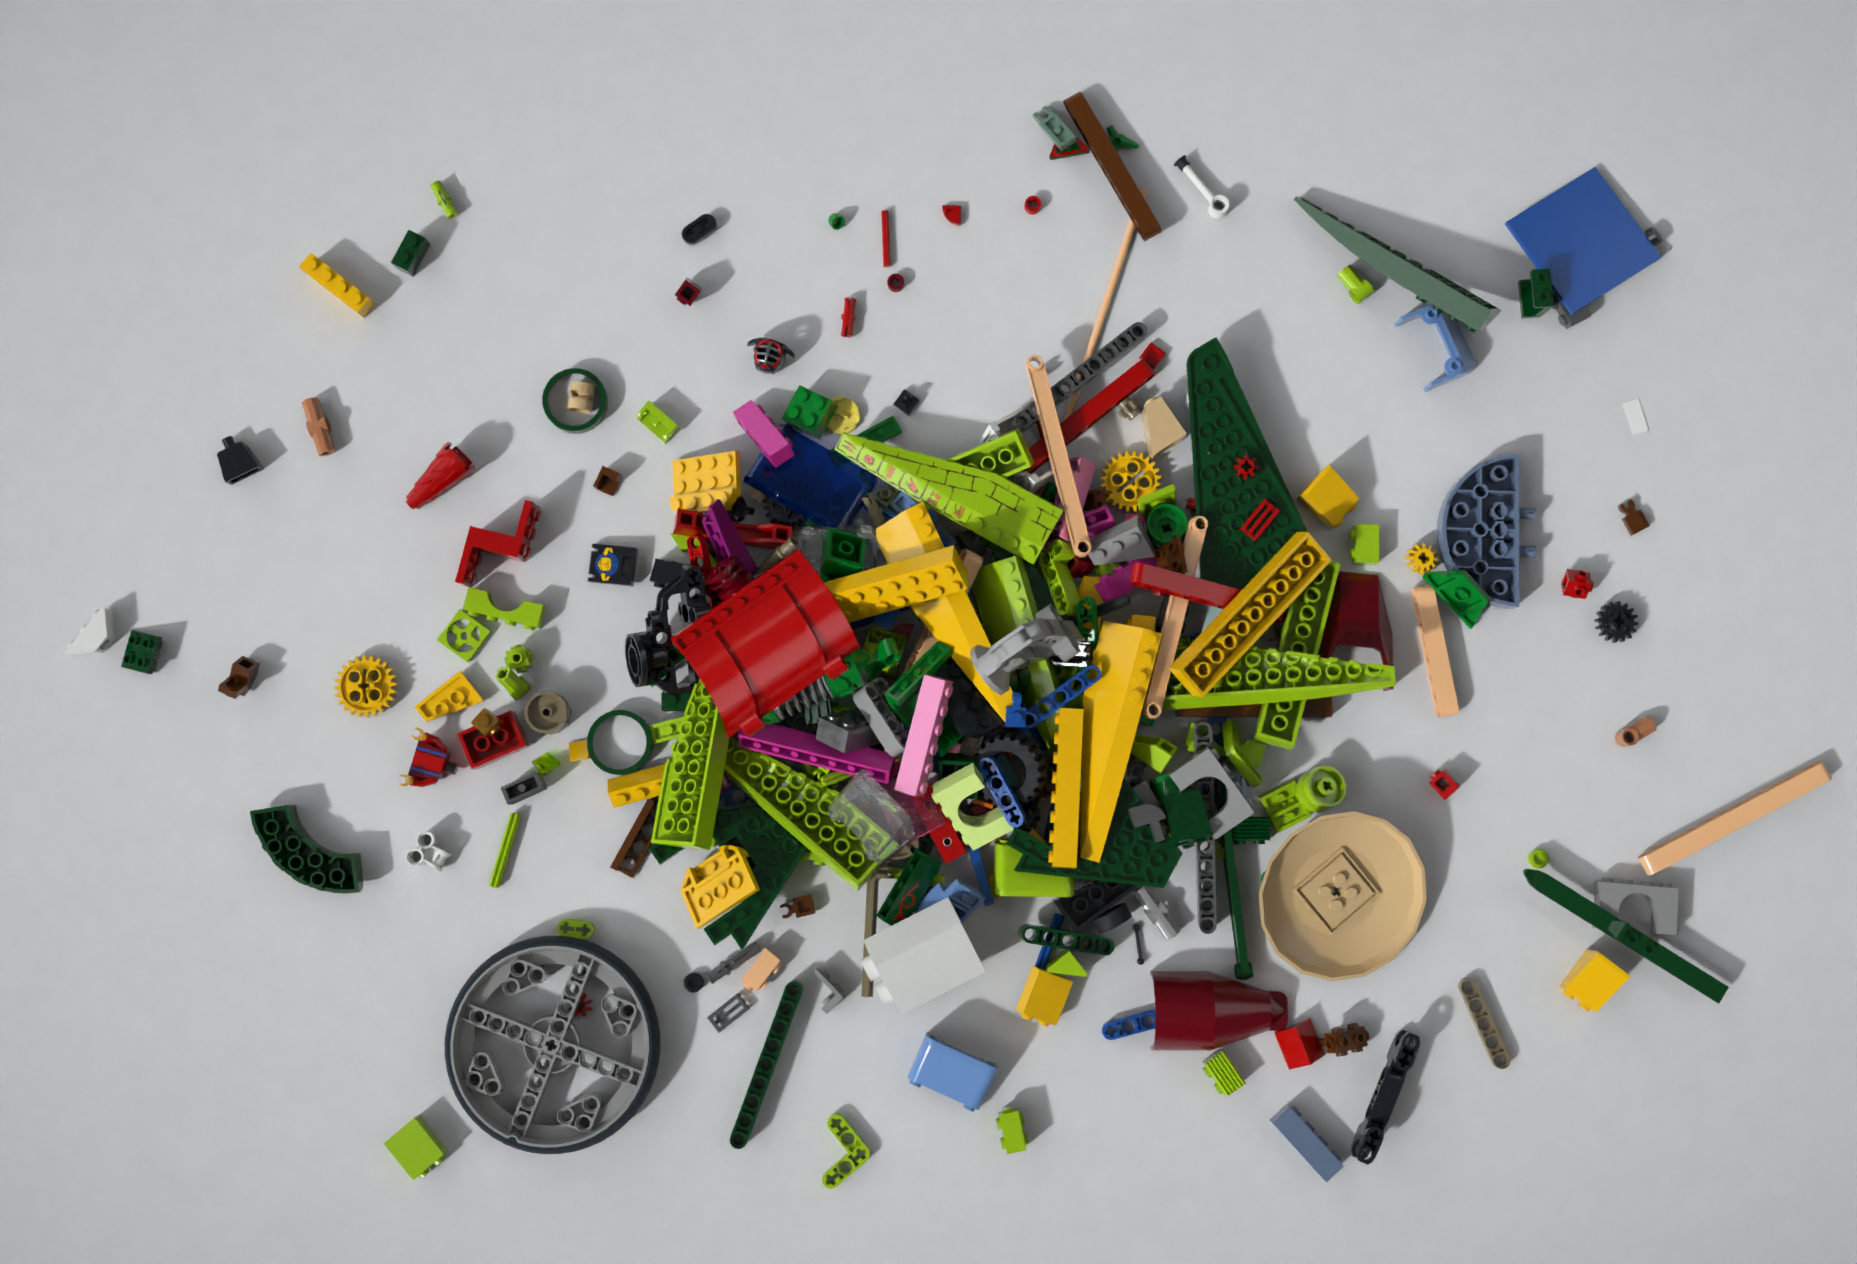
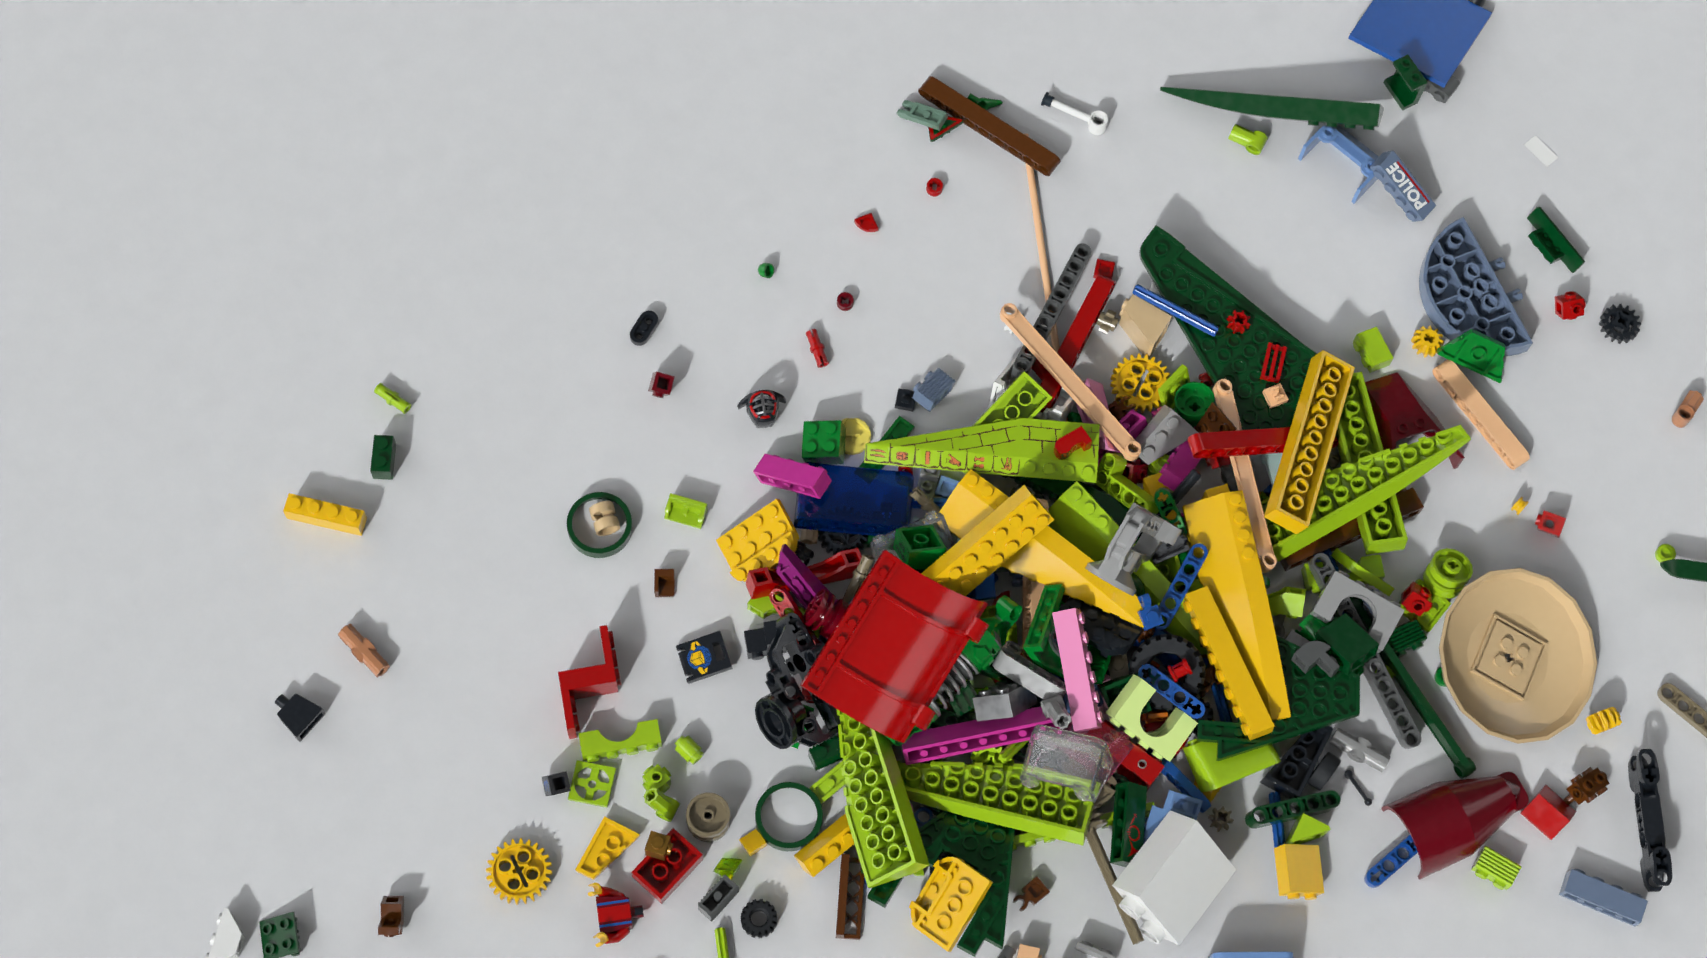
camera: 30 degrees left, 15 degrees down
(430, 623) = (556, 783): none -> black brick
(442, 473) = (504, 642): red cone -> none
(541, 824) = (759, 931): none -> black tyre
(560, 643) = (688, 749): none -> lime brick
(885, 765) = (1055, 710): none -> light grey piece
(886, 238) = (819, 271): red bar -> none
(934, 404) = (933, 389): none -> sand blue brick
(994, 913) = (1220, 824): none -> dark tan gear
(1016, 777) = (1180, 670): none -> red bush
(1025, 518) = (1071, 442): none -> red leg
(1192, 429) = (1175, 310): none -> blue axle
(1245, 552) = (1275, 395): none -> light nougat tile
(1279, 800) = (1416, 599): none -> red brick
(1329, 498) = (1320, 322): yellow slope -> none
(1393, 987) = (1603, 720): none -> yellow gear
(1424, 753) = (1519, 505): none -> yellow bush
(1476, 398) = (1402, 186): none -> sand blue brick
(1594, 513) = (1552, 242): none -> dark green bracket
(1634, 520) = (1587, 234): reddish brown plate -> none

